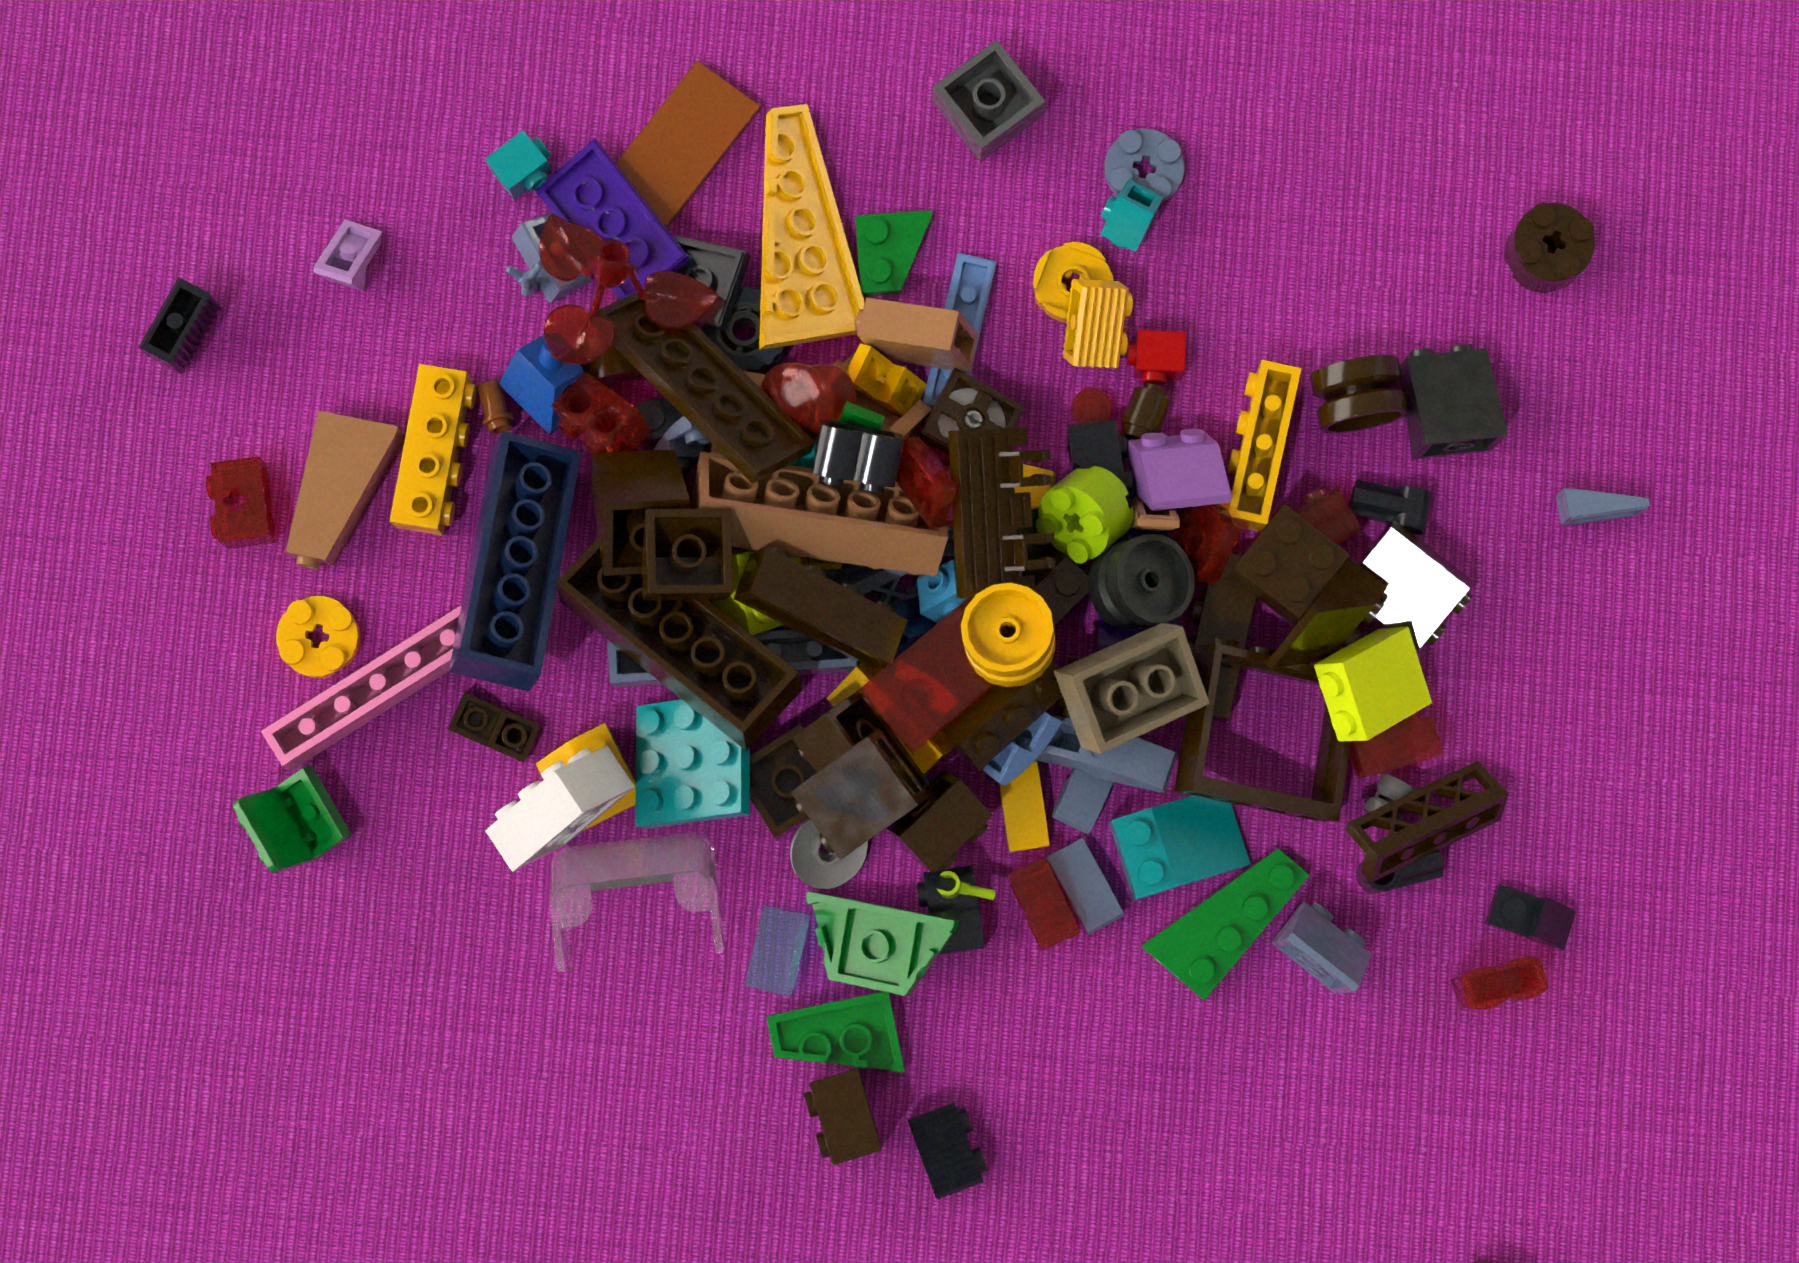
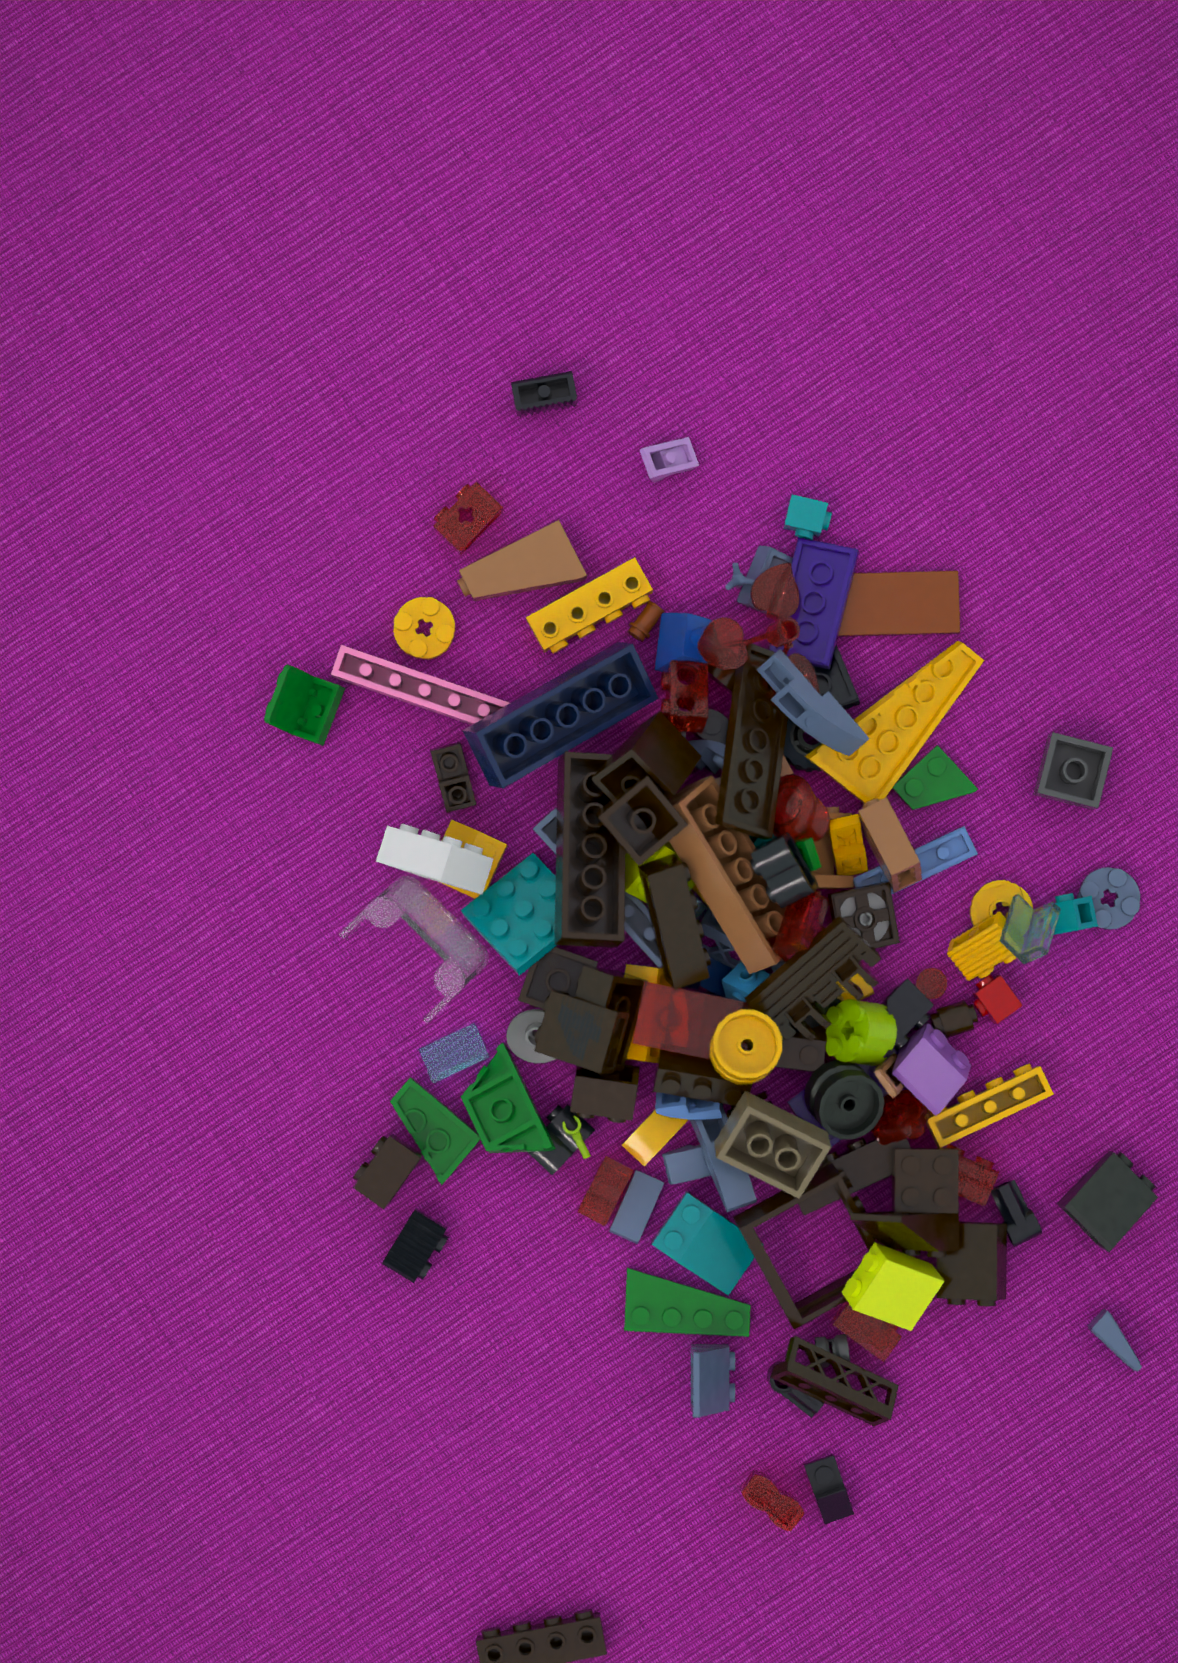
camera: 55 degrees right, 5 degrees up
(712, 302) = (815, 714): none -> sand blue slope
(1118, 262) = (1029, 930): none -> clear light blue panel
(1359, 394) = (1065, 1143): dark brown wheel -> none

